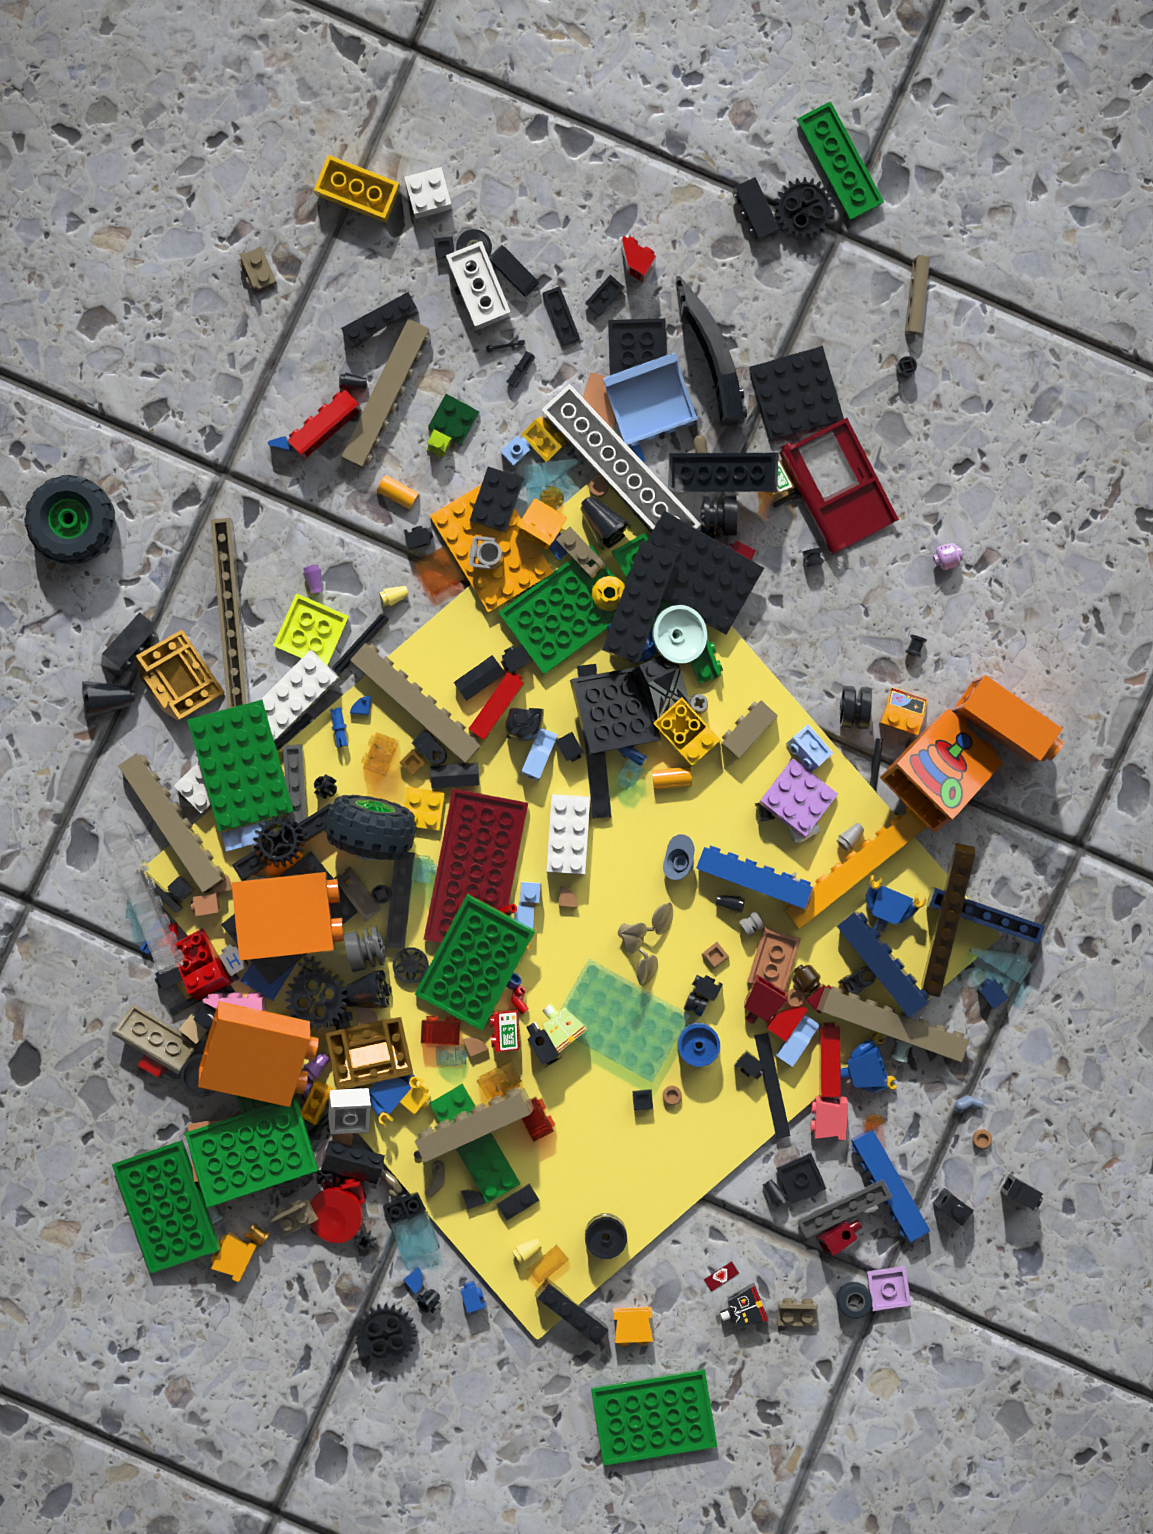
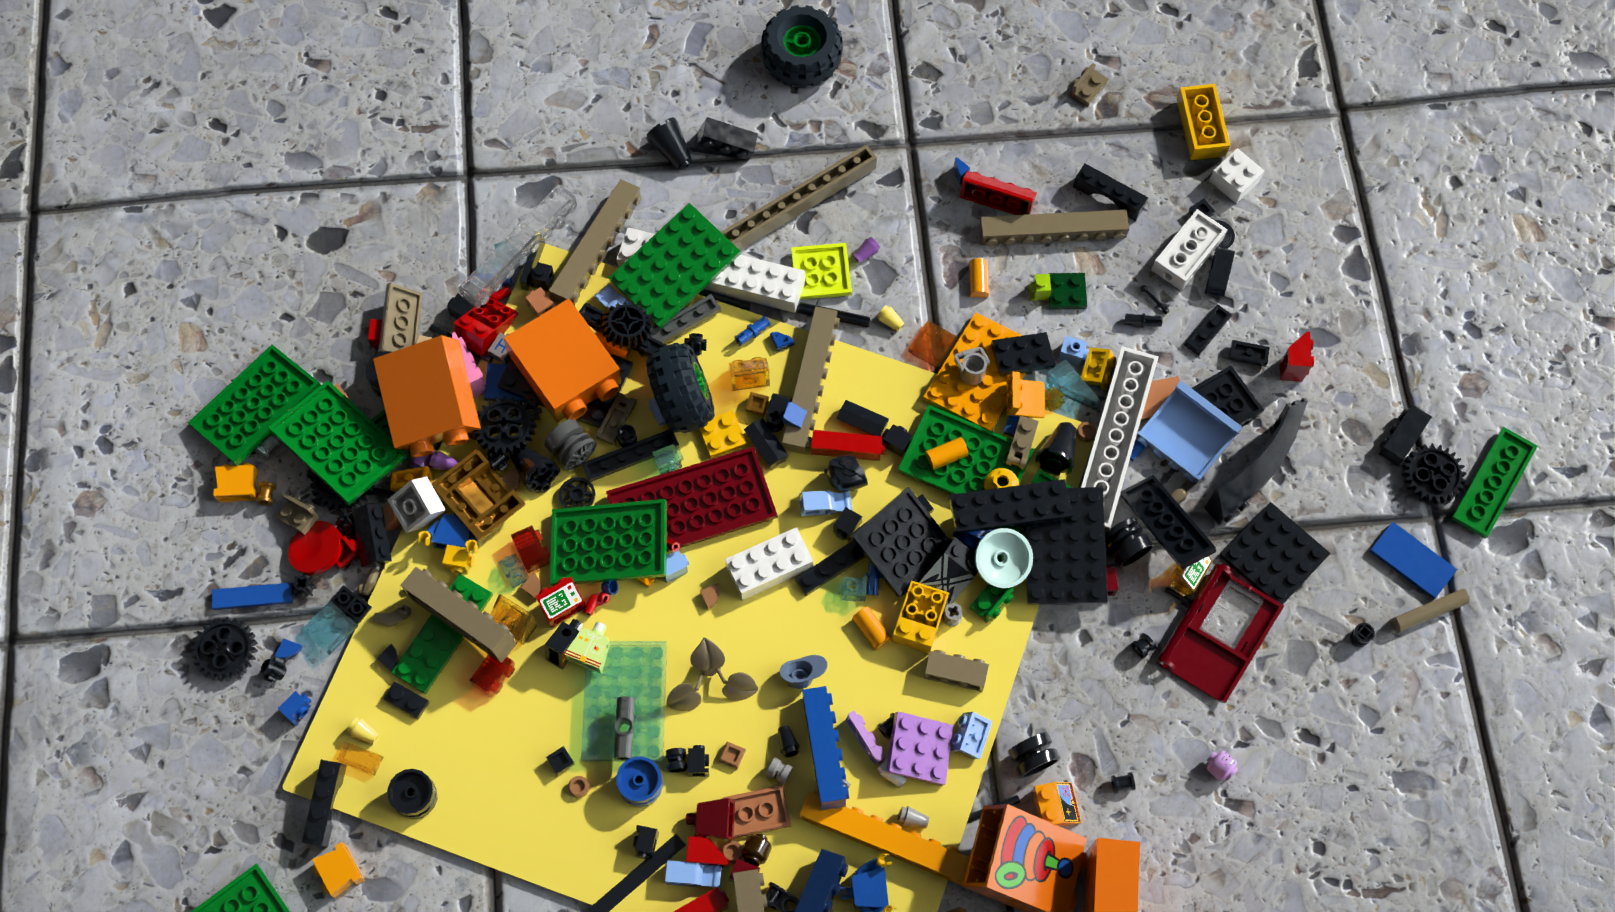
camera: 60 degrees right, 20 degrees down
(177, 676) = (723, 187): pearl gold slope -> none
(348, 1288) = (252, 596): none -> blue tile
(352, 382) = (1046, 197): black cone -> none
(418, 537) = (951, 312): black brick -> none
(447, 738) = (794, 415): none -> slope
(530, 892) = (698, 558): light blue brick -> none
(554, 624) = (947, 453): none -> light orange brick
(658, 1041) = (624, 740): none -> dark grey piece
(764, 837) = (865, 738): none -> lavender hinge
(867, 278) = (1413, 560): none -> blue tile

